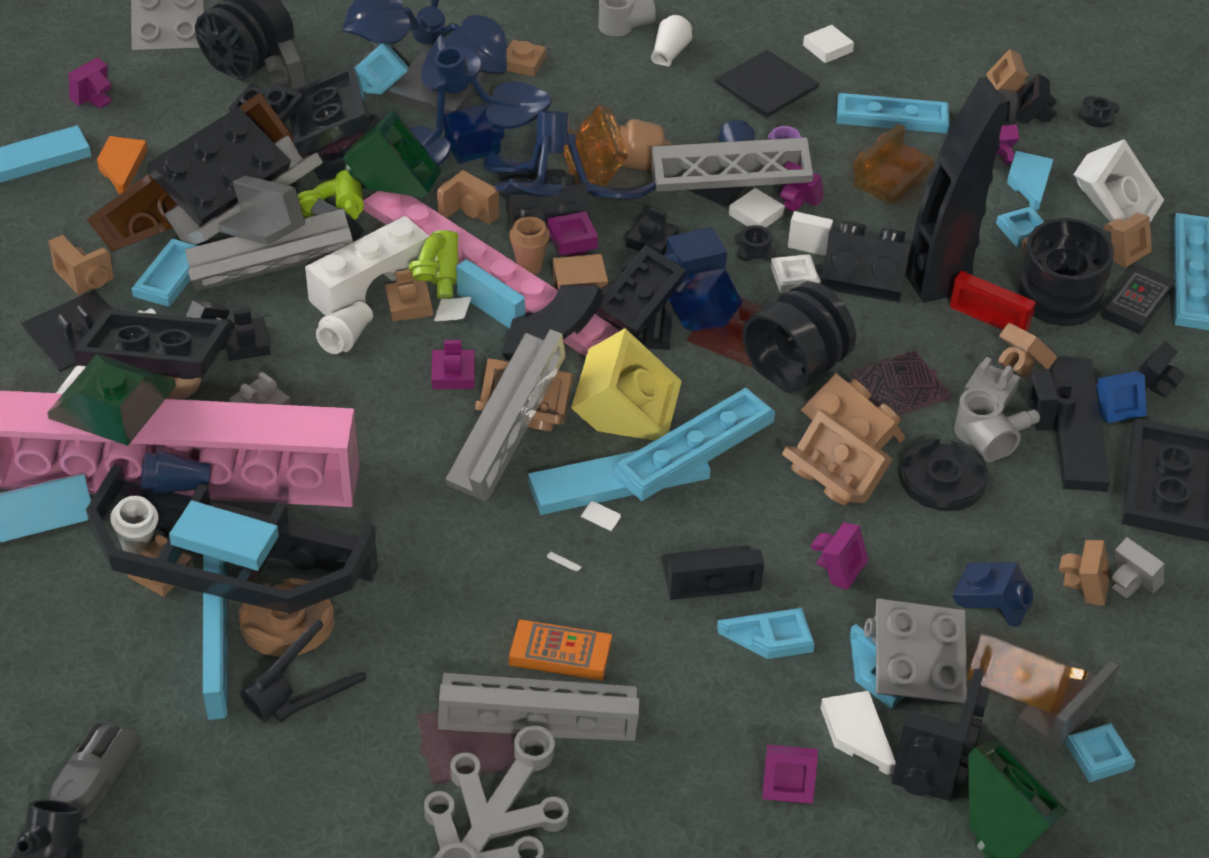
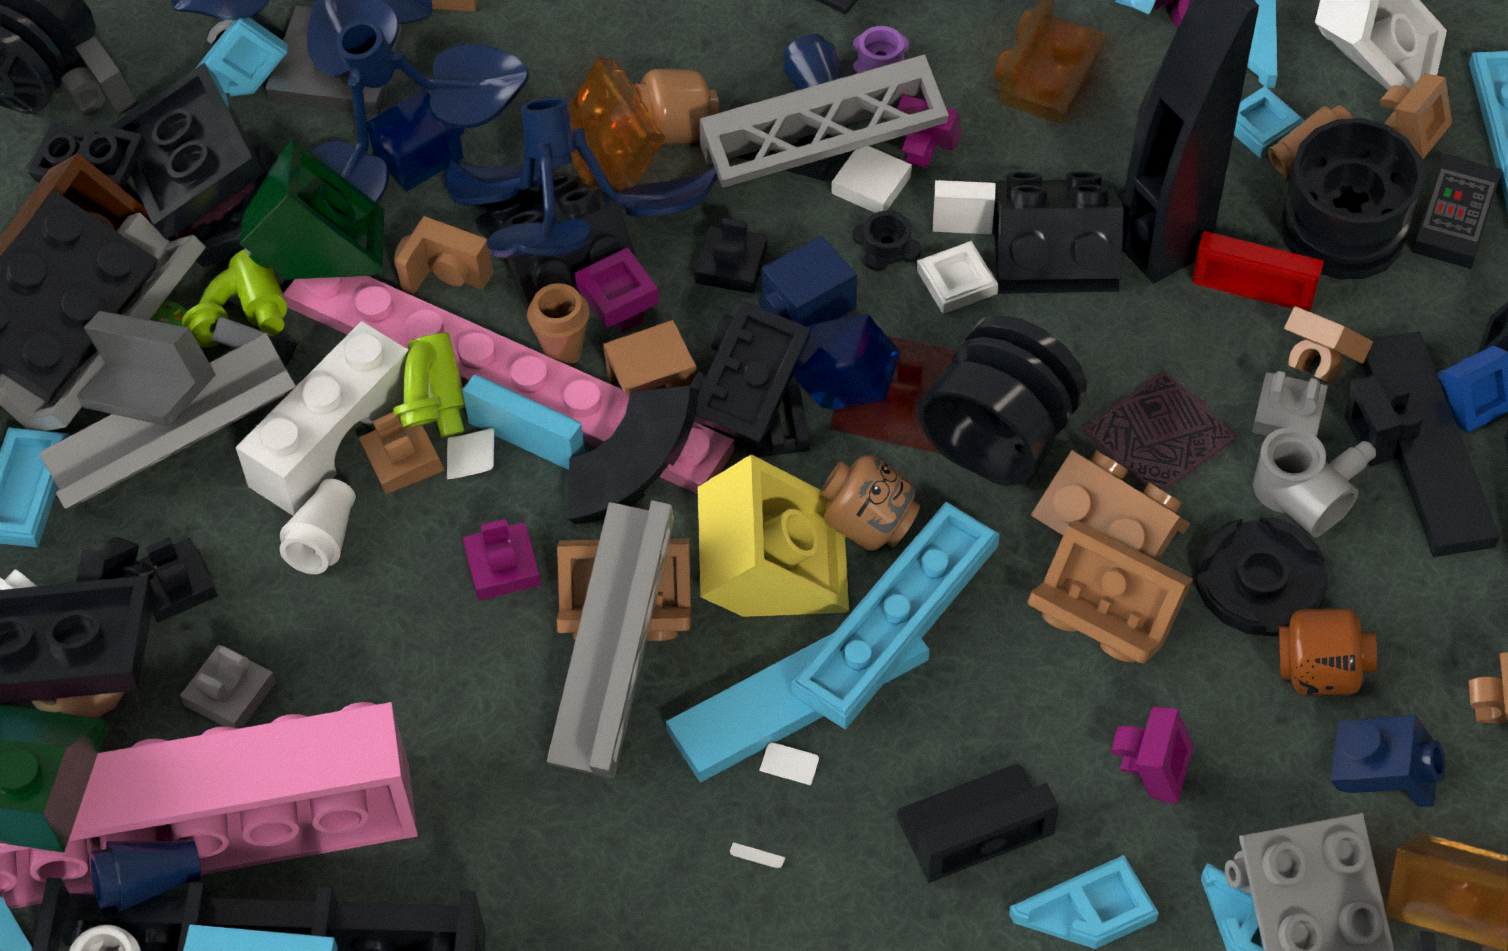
camera: 10 degrees left, 10 degrees up
(696, 379) = (869, 502): none -> medium nougat head
(970, 520) = (1326, 652): none -> dark orange head

